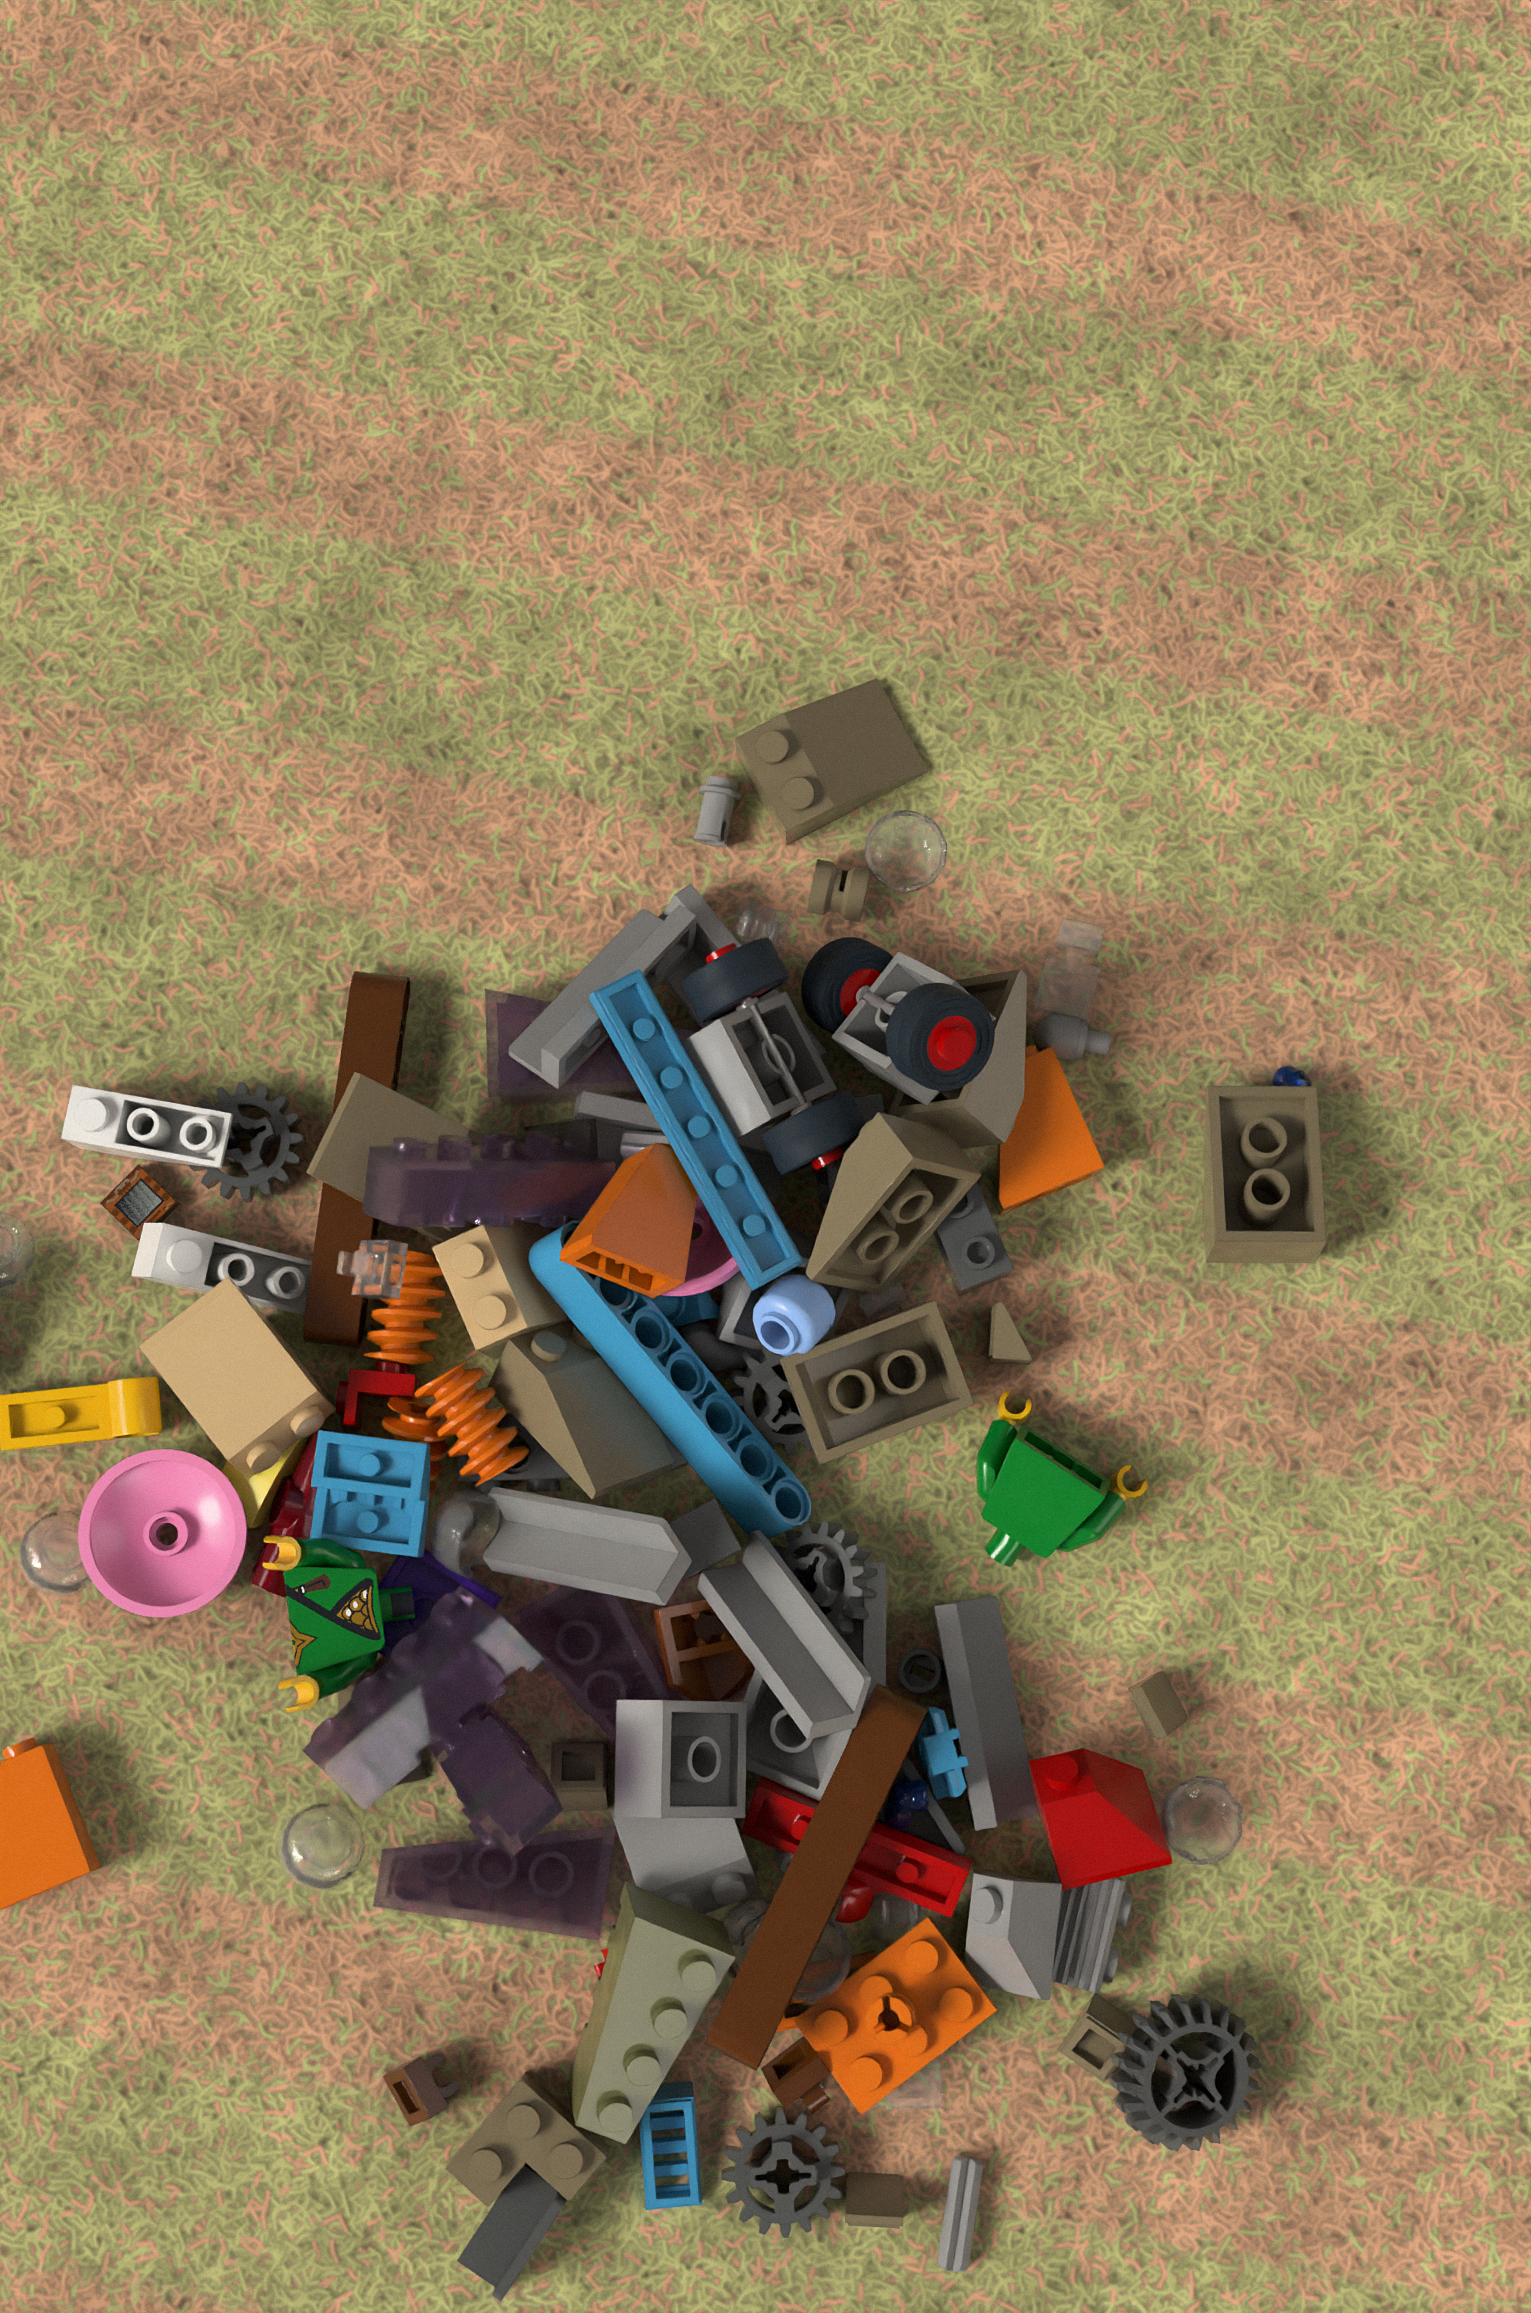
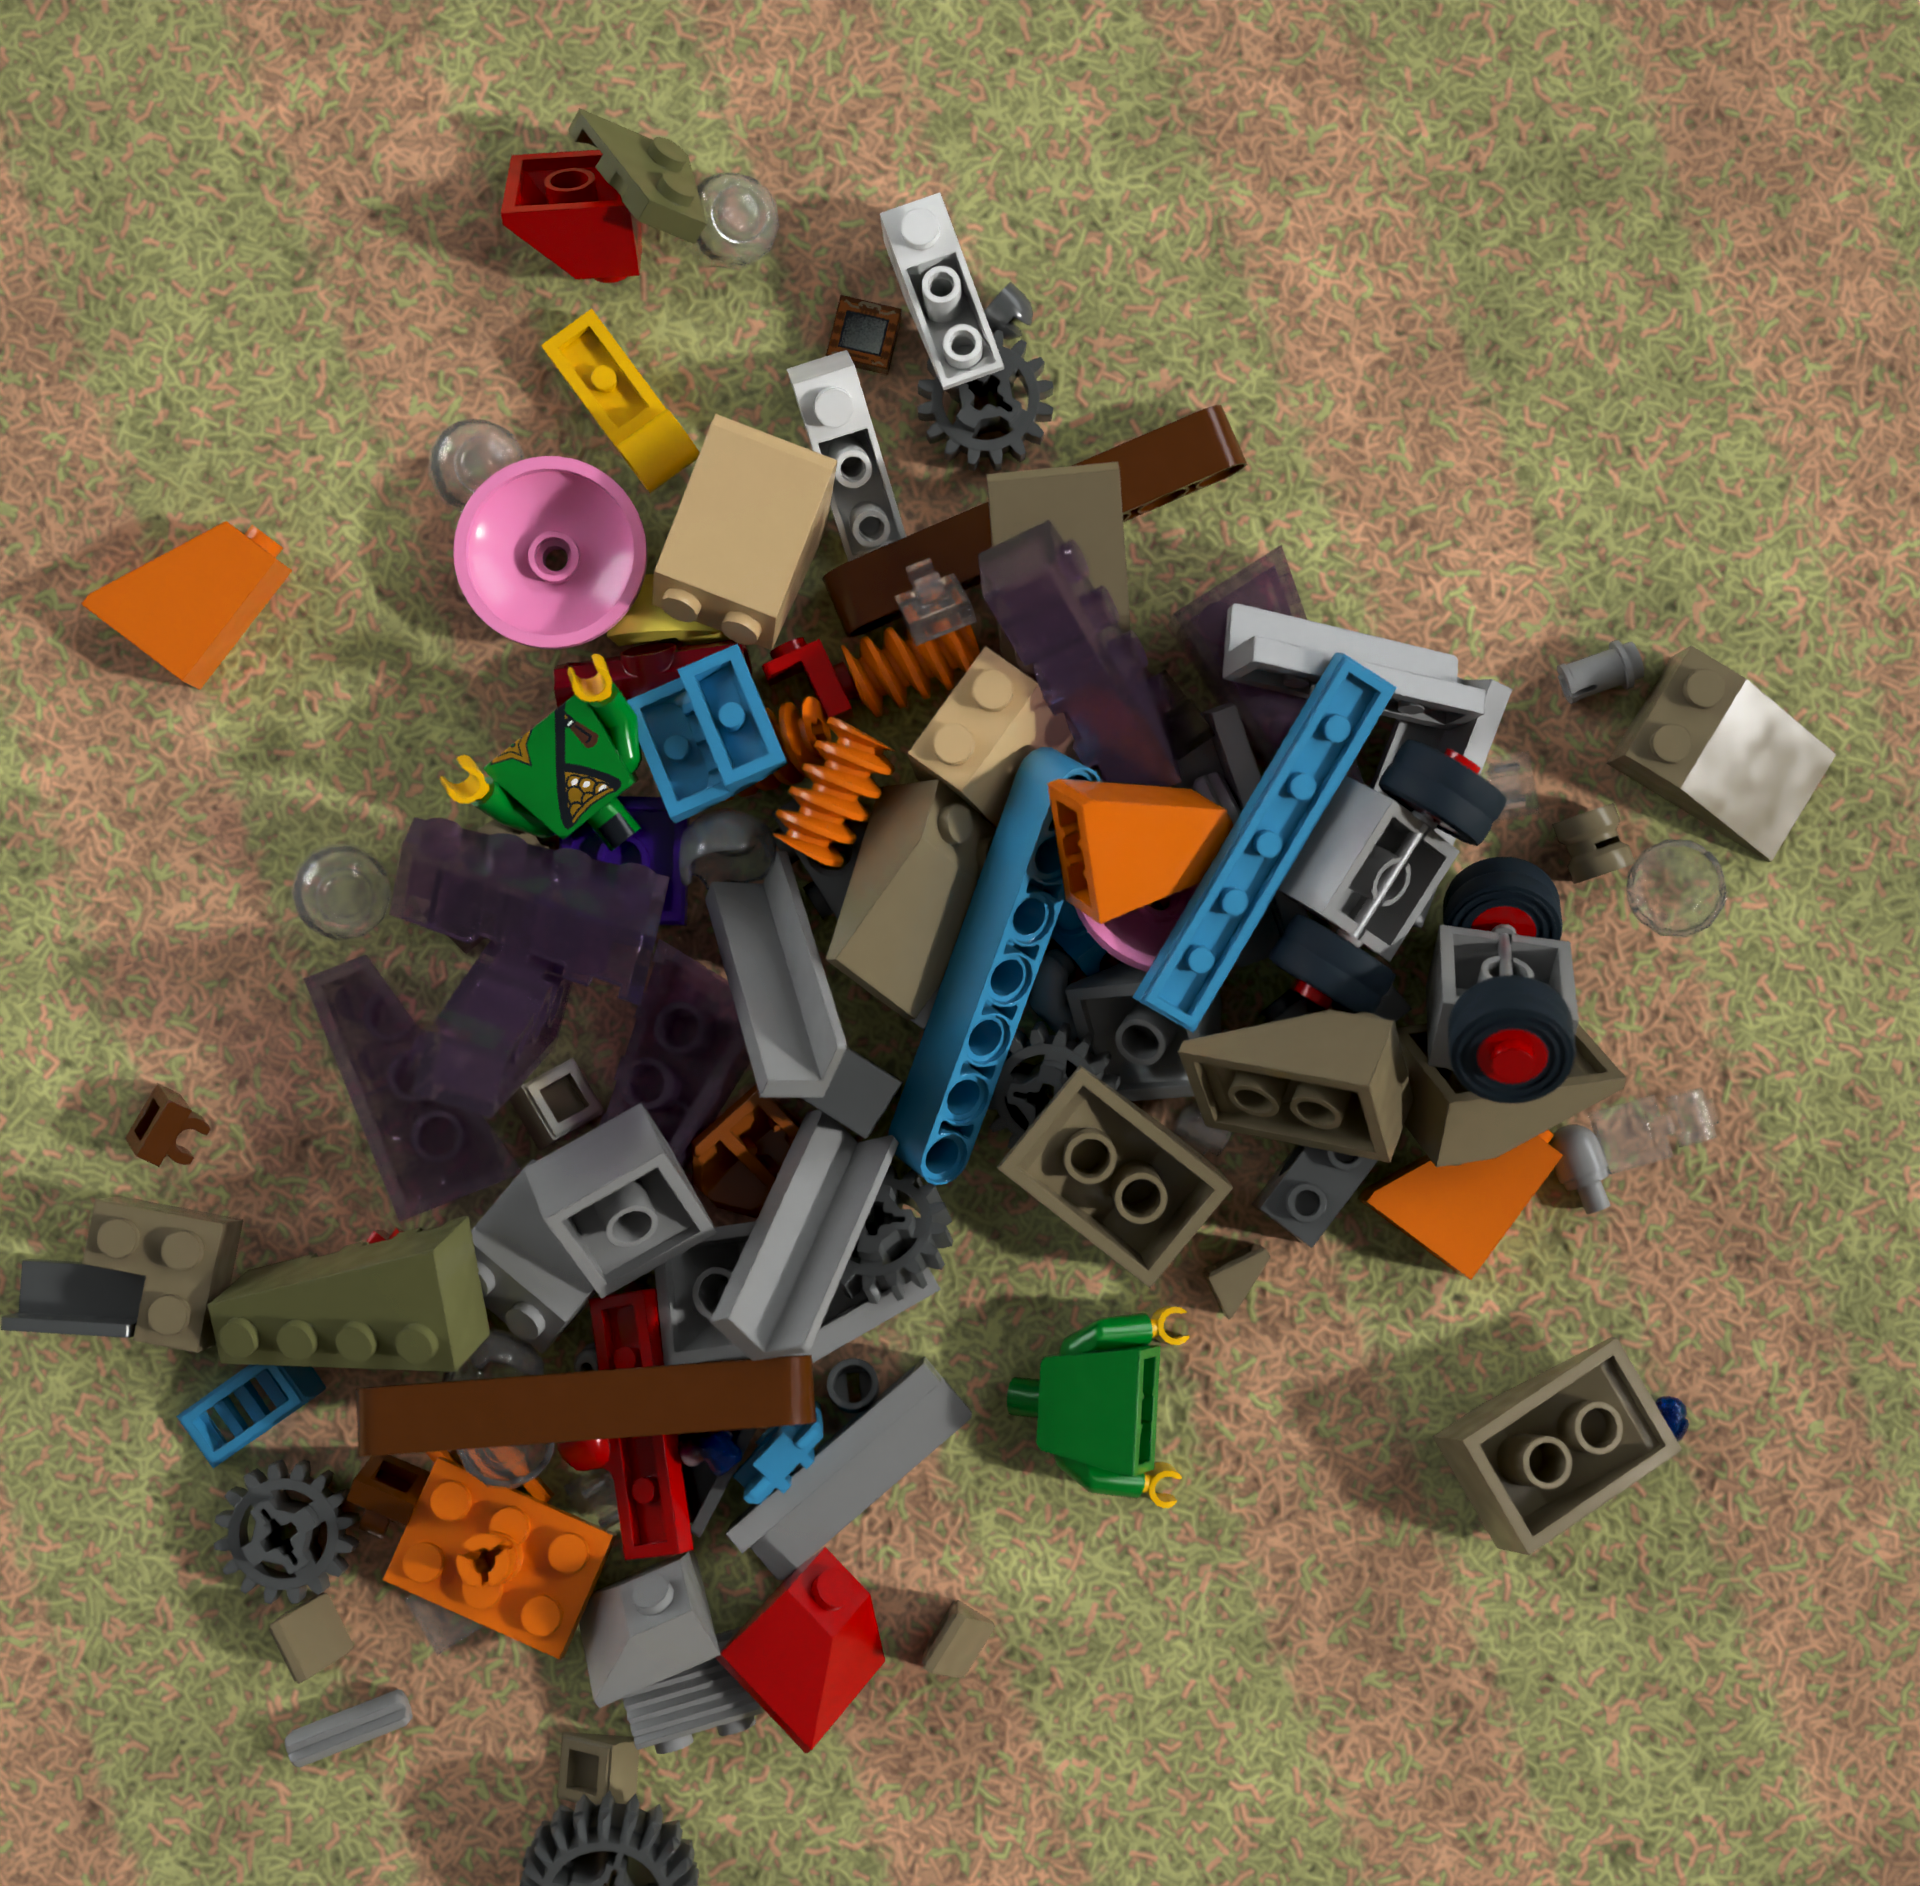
camera: 60 degrees right, 5 degrees up
(184, 1085) = (1005, 307): none -> dark grey hinge
(793, 1315) = (1132, 1053): light blue head -> none
(1201, 1820) = (867, 1753): clear hair -> none

